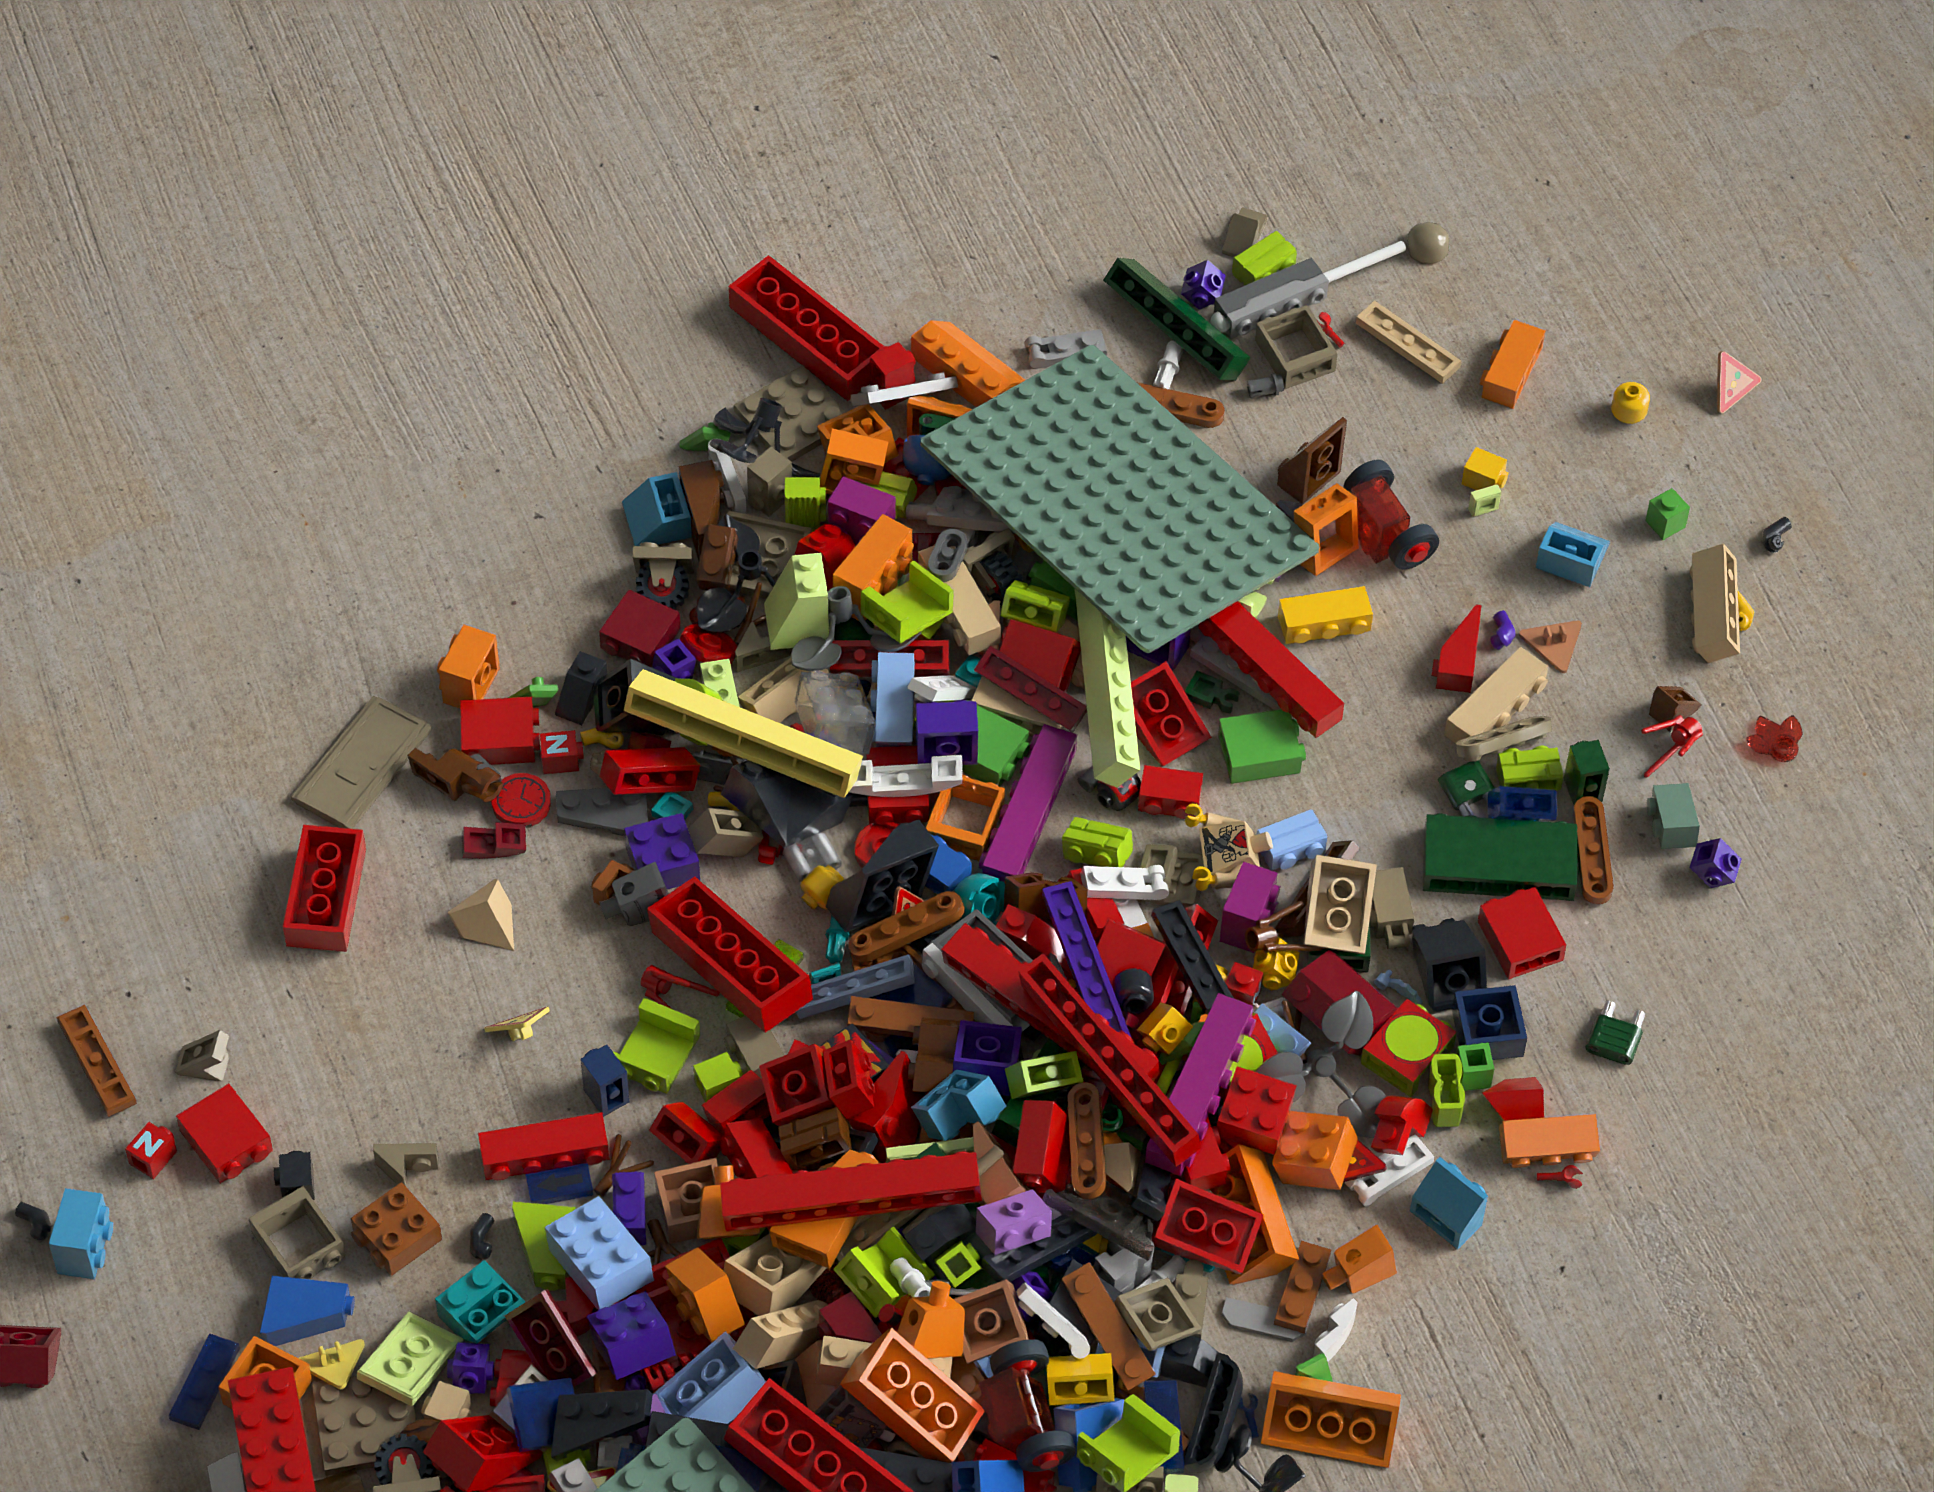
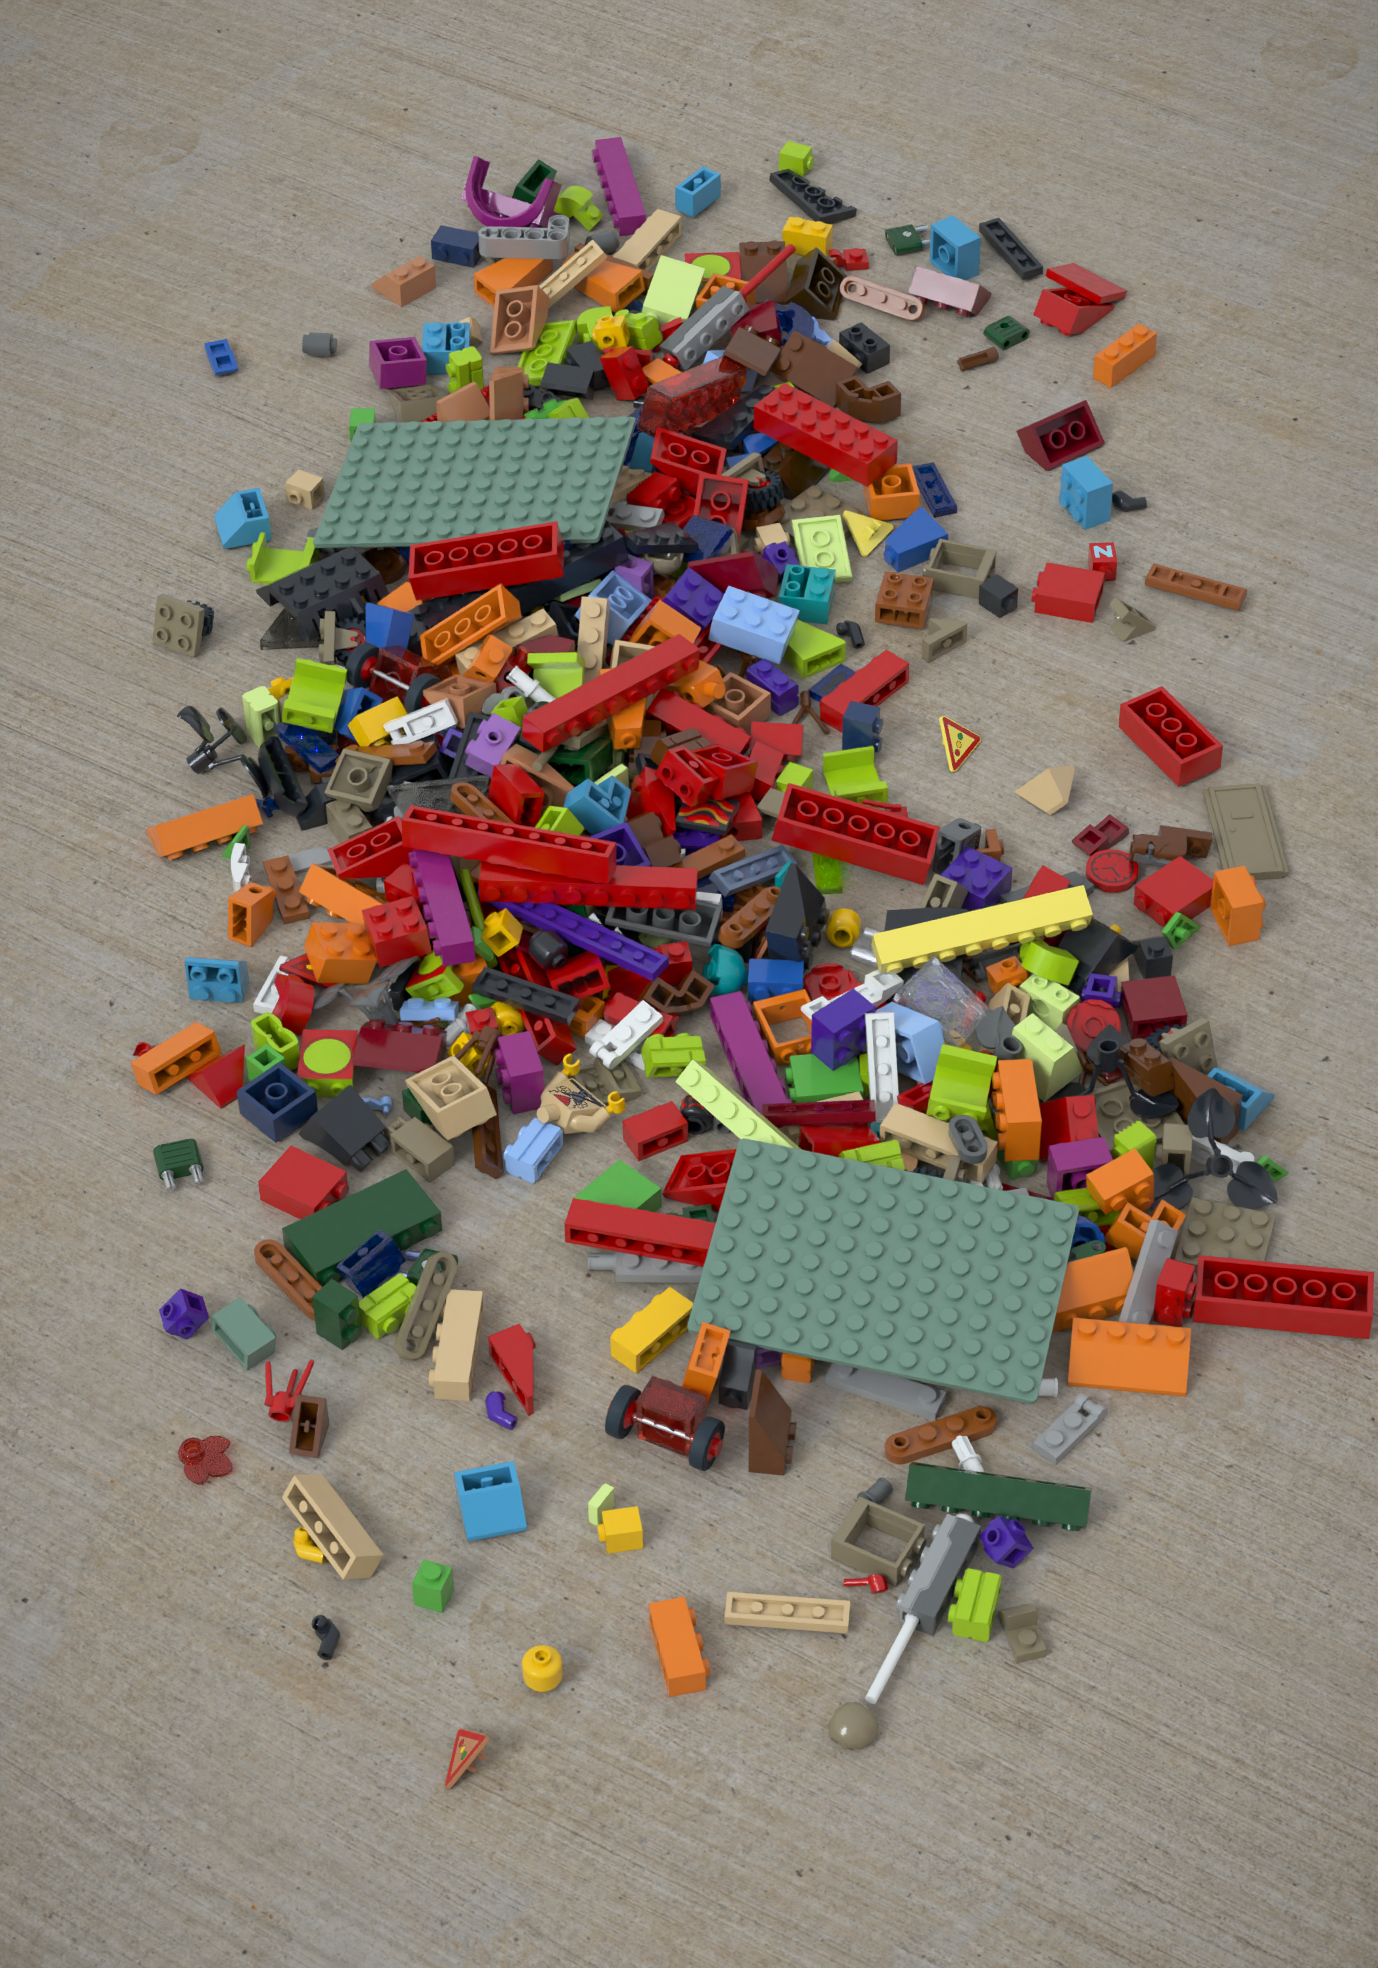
camera: 145 degrees right, 10 degrees down
(560, 752) = (1118, 905): red brick -> none
(1554, 642) = (451, 1434): nougat piece -> none

